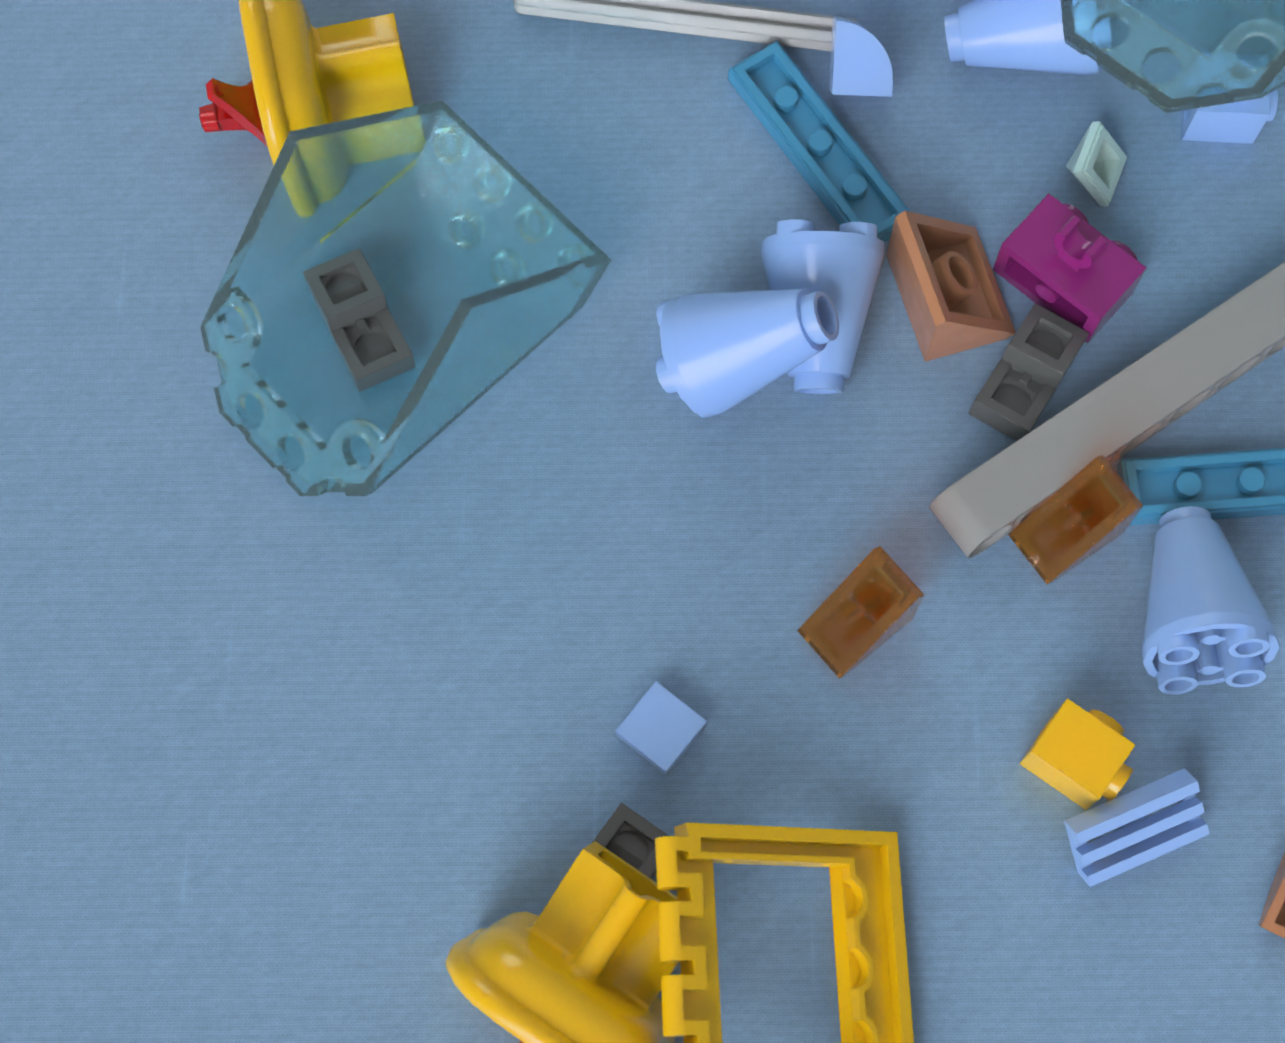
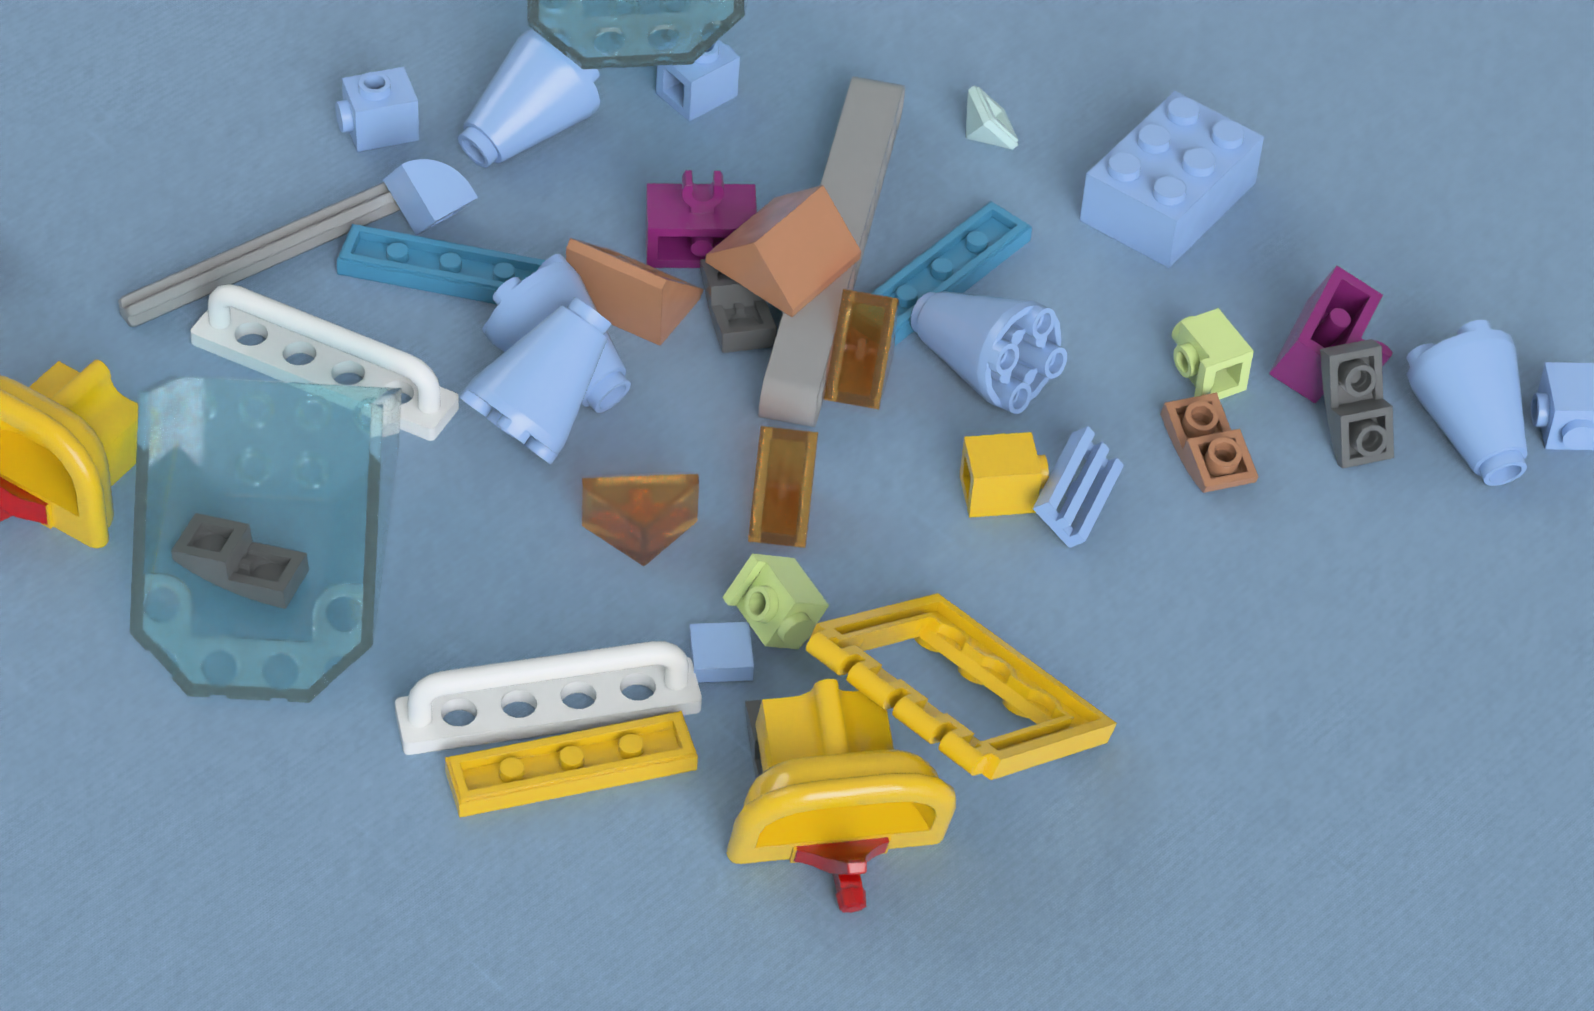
camera: 50 degrees left, 25 degrees down
(437, 734) = (570, 764): none -> yellow tile
(591, 716) = (544, 685): none -> white piece
(669, 270) = (335, 351): none -> white piece
(724, 535) = (640, 511): none -> clear orange slope
(741, 729) = (777, 600): none -> yellowish green brick
(1097, 163) = (650, 161): light aqua slope -> none
(1098, 367) = (789, 249): none -> nougat slope

